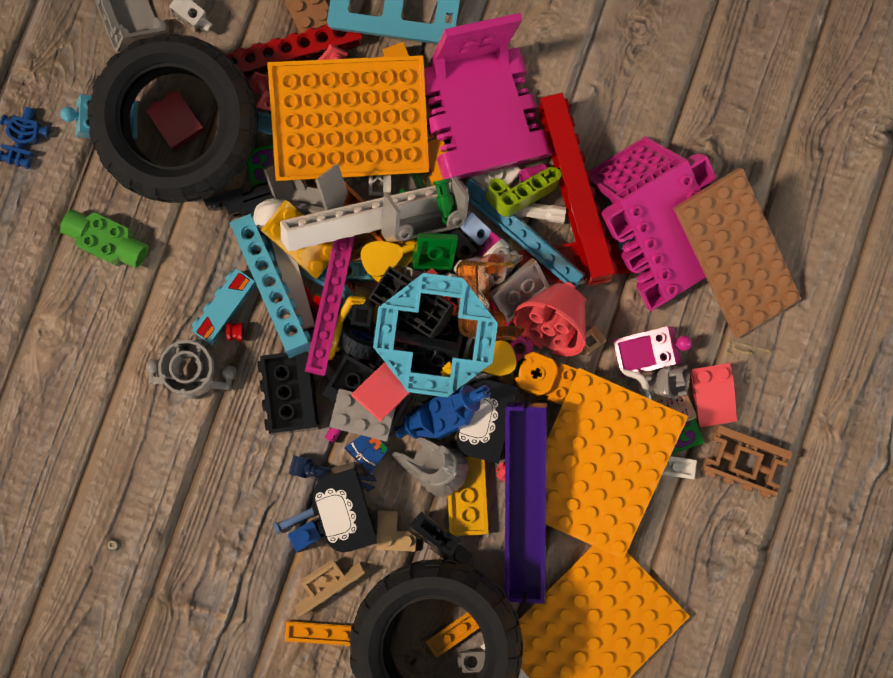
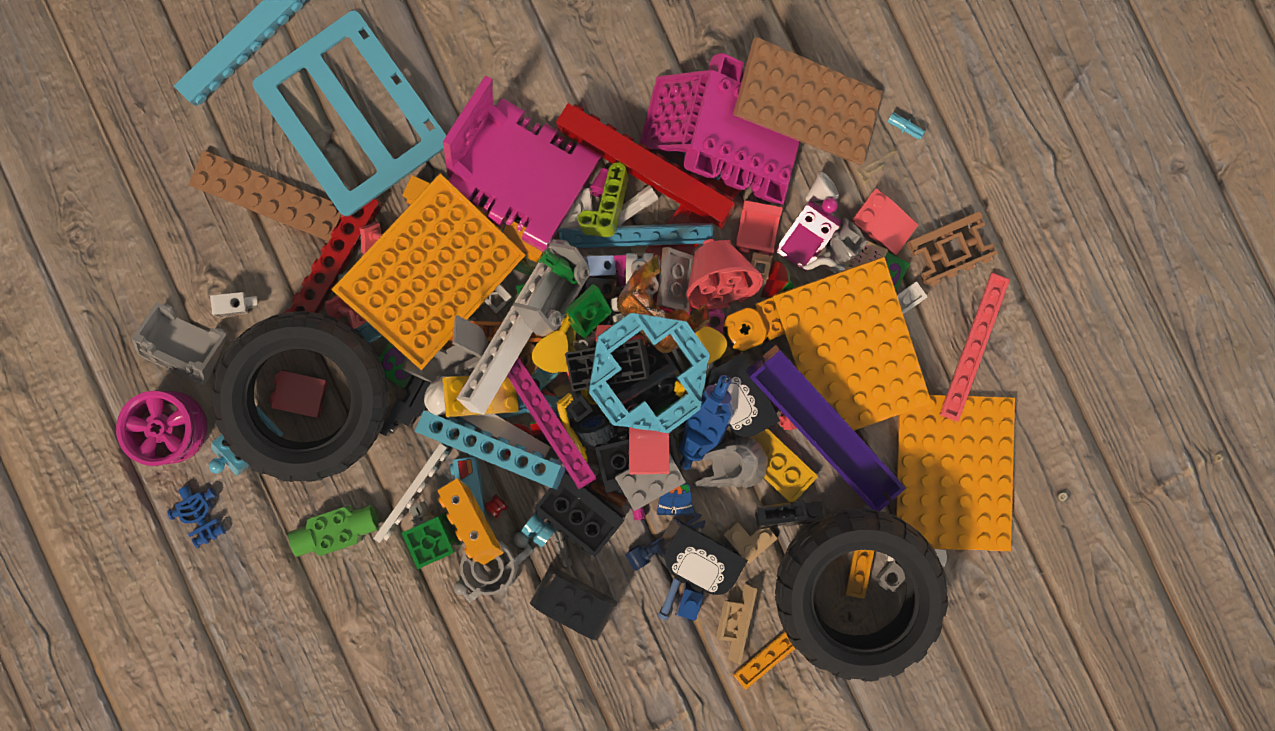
camera: 45 degrees left, 5 degrees up
(38, 30) = (131, 424): none -> dark pink wheel
(167, 305) = (430, 536): none -> green piece
(178, 266) = (408, 499): none -> white plate
(204, 320) = (469, 521): none -> light orange piece
(221, 454) = (573, 603): none -> black brick
(248, 376) = (538, 530): none -> medium azure wheel
(252, 408) = (562, 549): none -> light grey axle
(324, 403) = (612, 497): none -> dark orange axle
(594, 362) = (777, 280): none -> shield
(616, 312) = (758, 228): none -> coral panel
(690, 327) = (822, 188): none -> white hat
(694, 549) = (974, 347): none -> coral tile
(795, 340) = (906, 126): none -> medium azure axle

